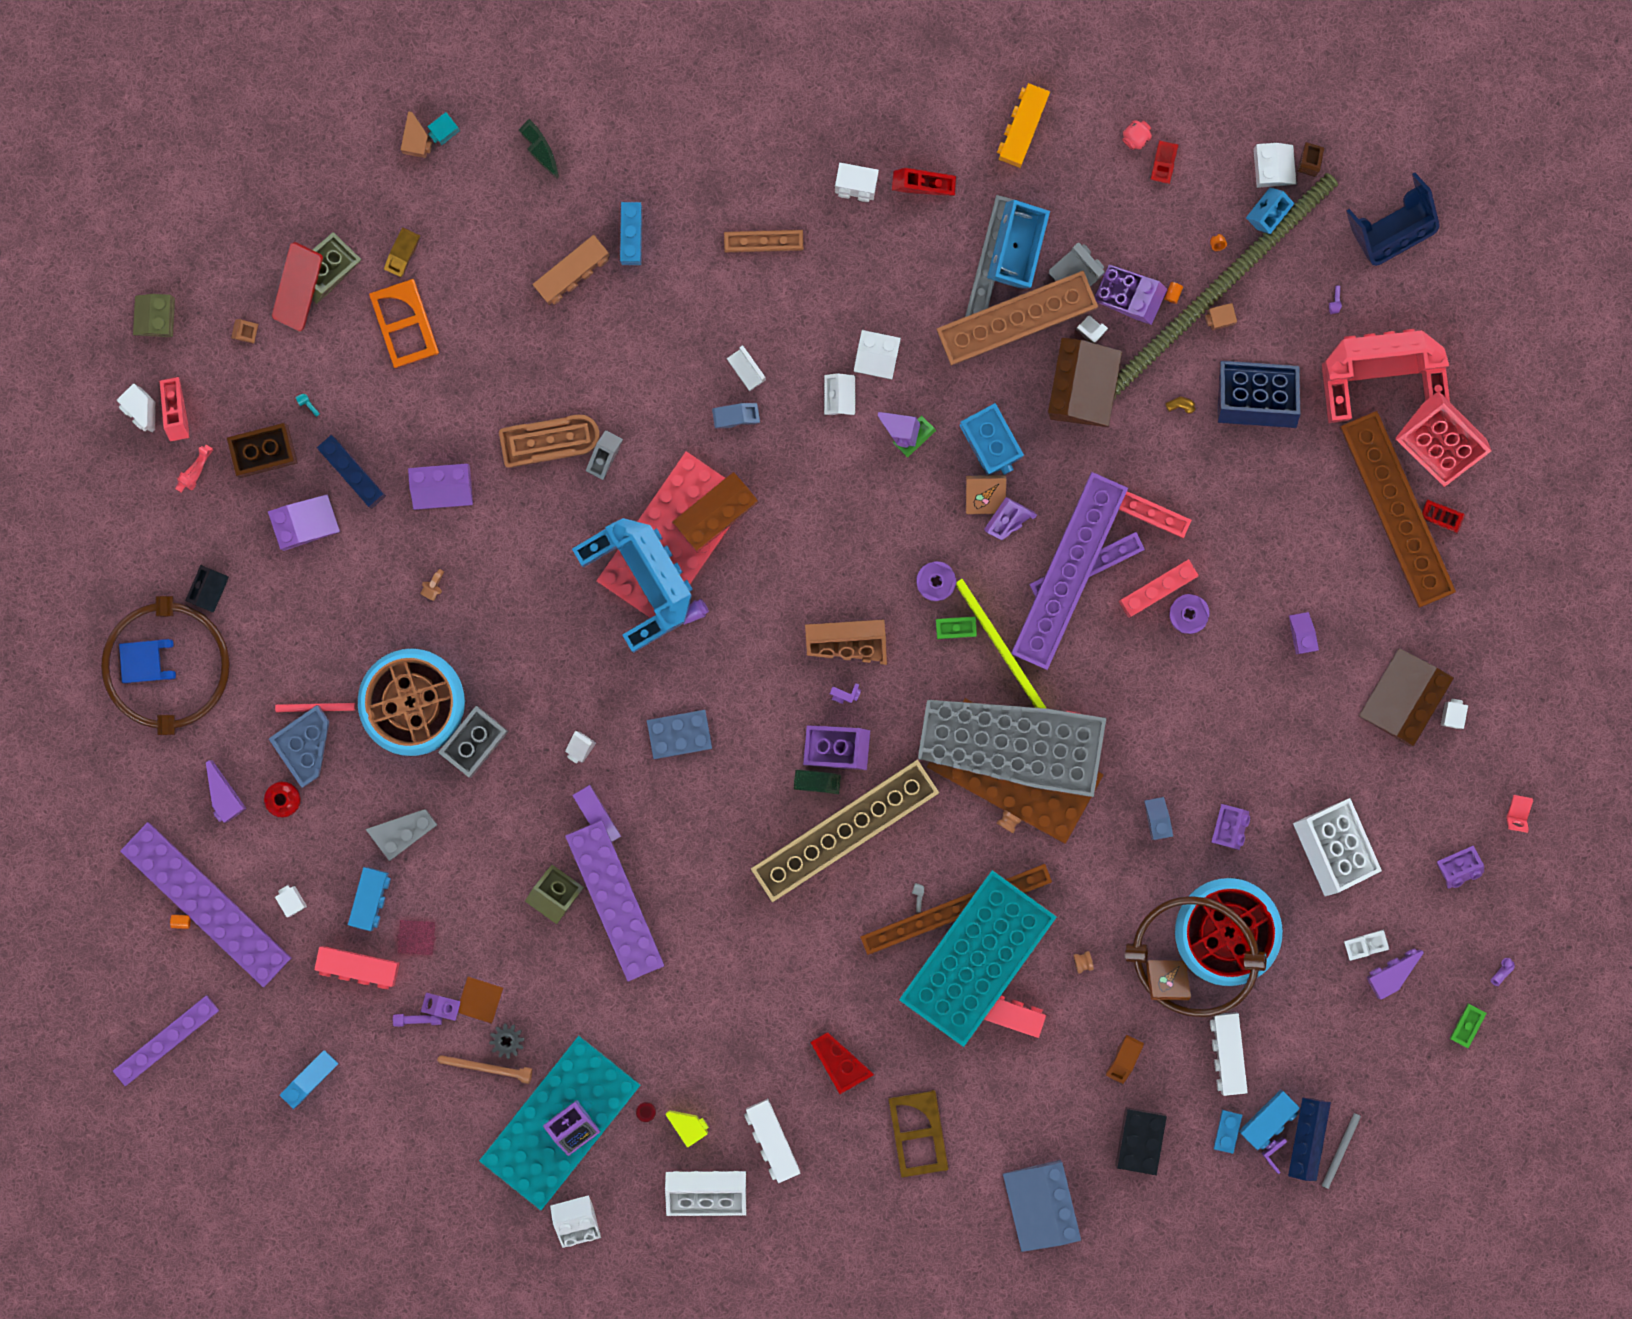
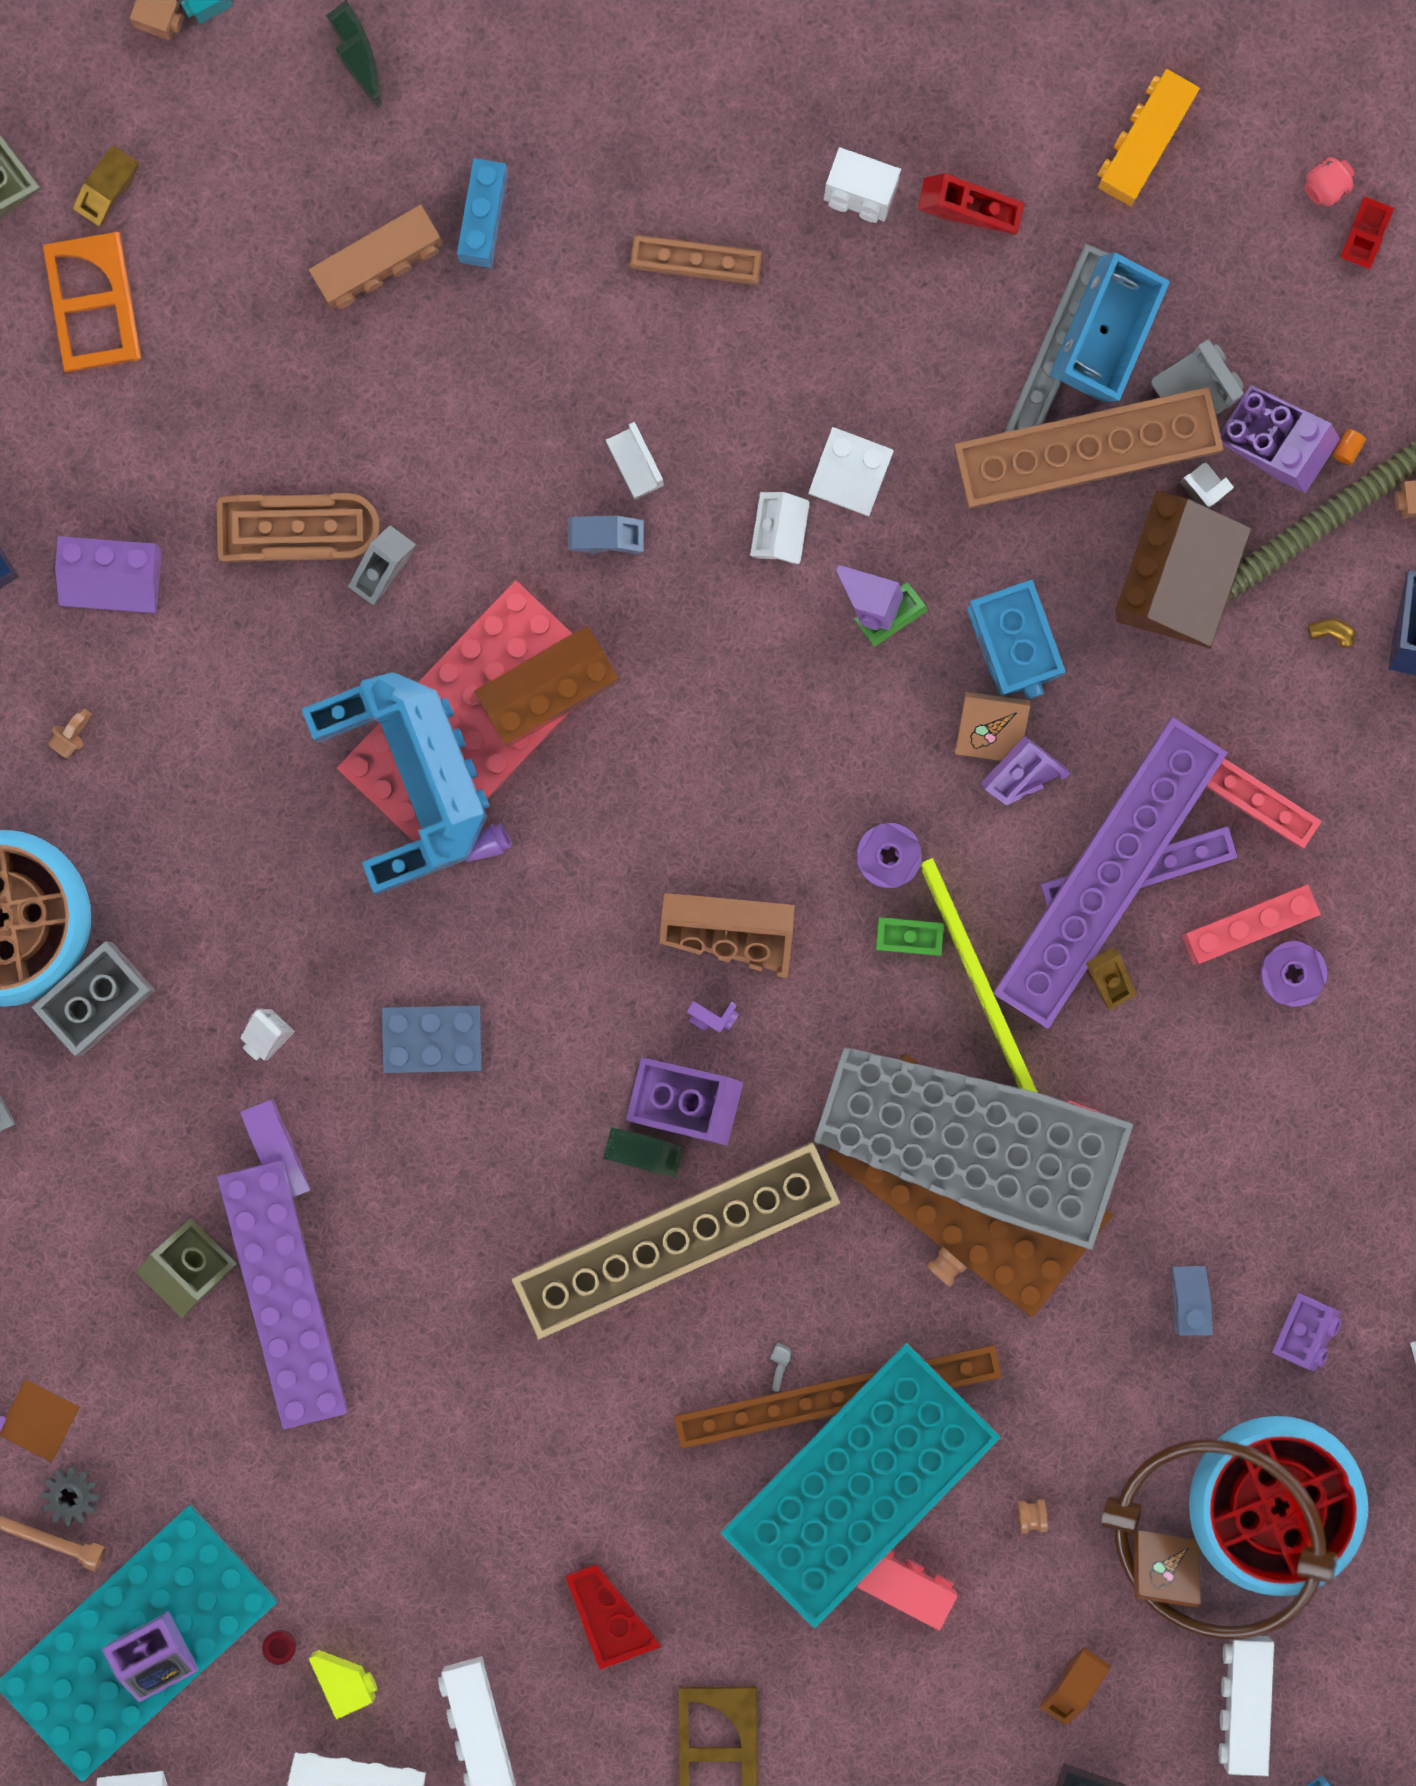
camera: 10 degrees right, 0 degrees up
(1080, 633) = (1110, 978): none -> pearl gold slope

